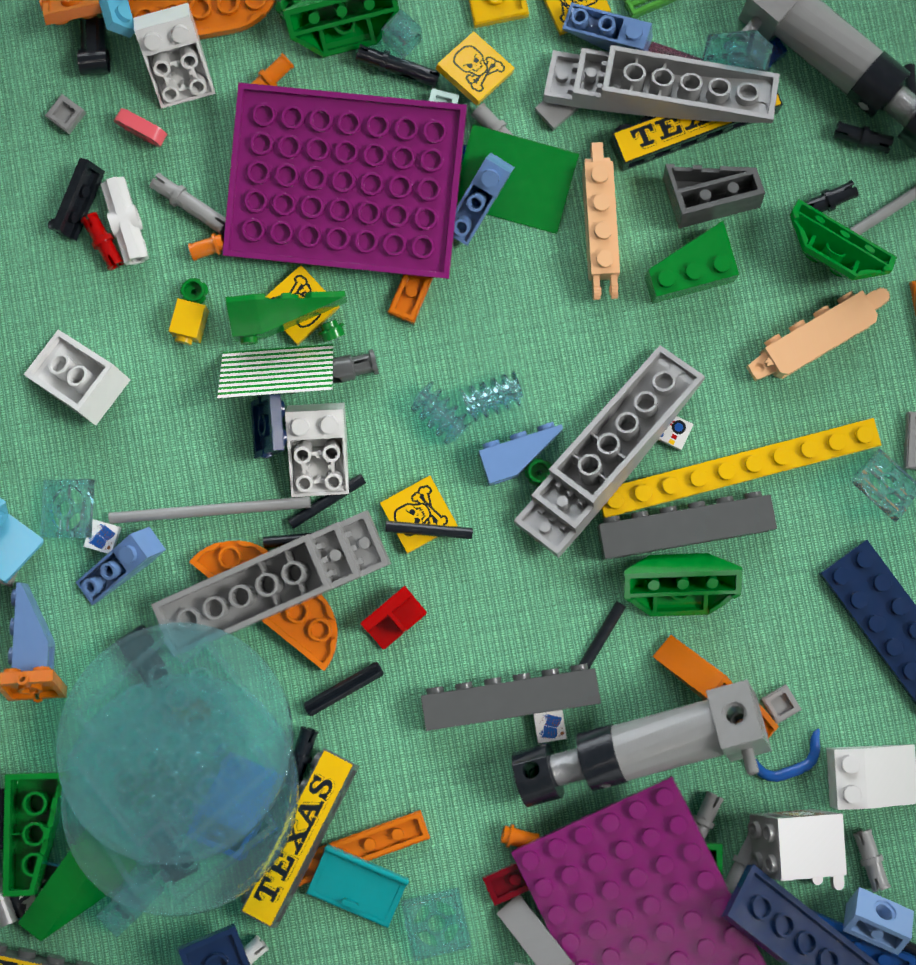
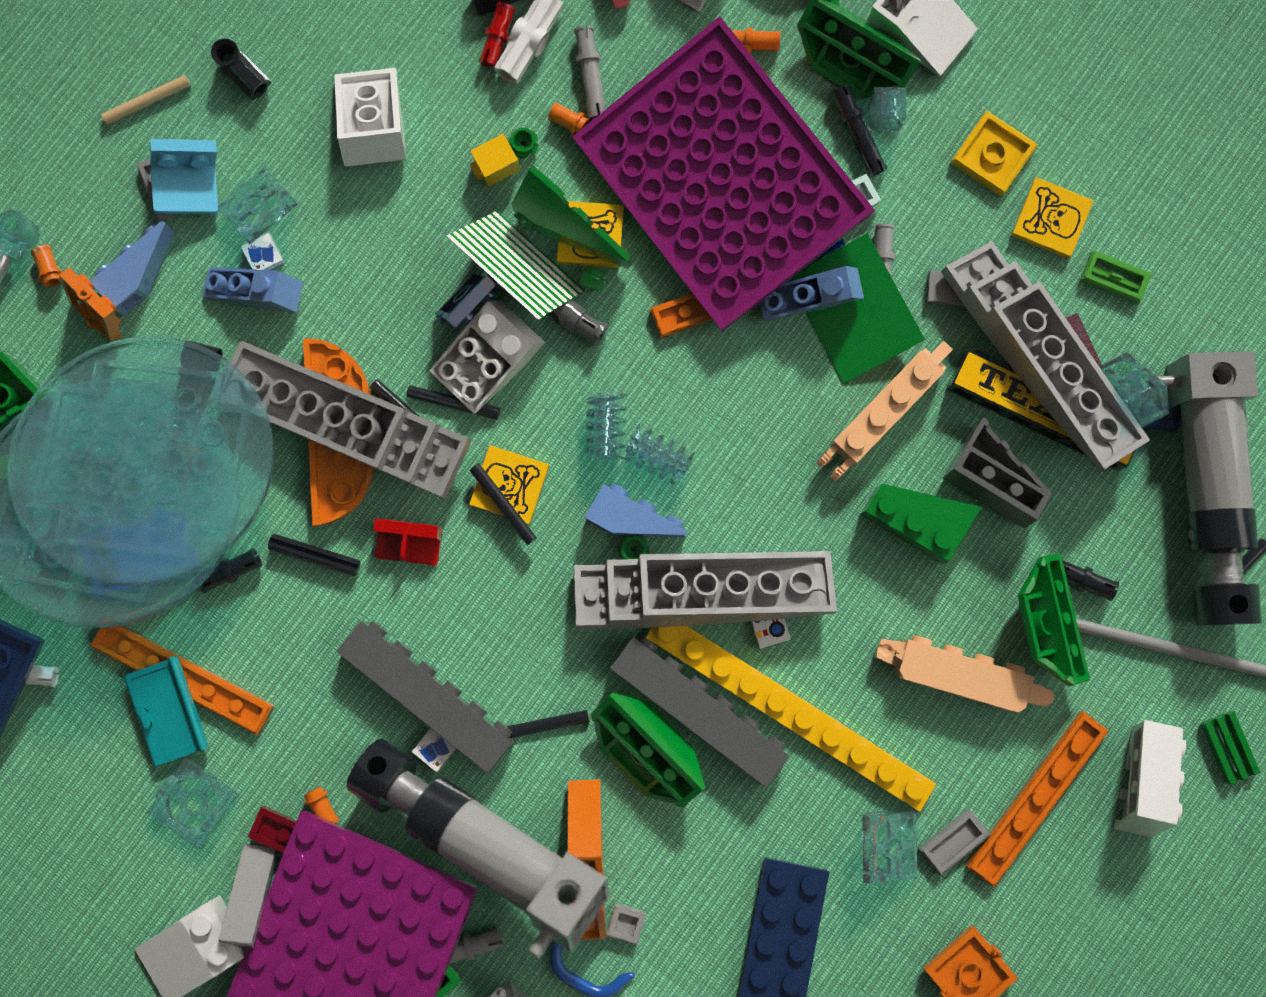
camera: 55 degrees right, 0 degrees up
(209, 510) = (361, 317): light grey piece -> none
(316, 808) = (185, 624): brick -> none
(475, 68) = (916, 192): yellow tile -> none
(607, 28) = (1052, 267): medium blue slope -> none
(863, 137) = (1166, 559): black pin -> none

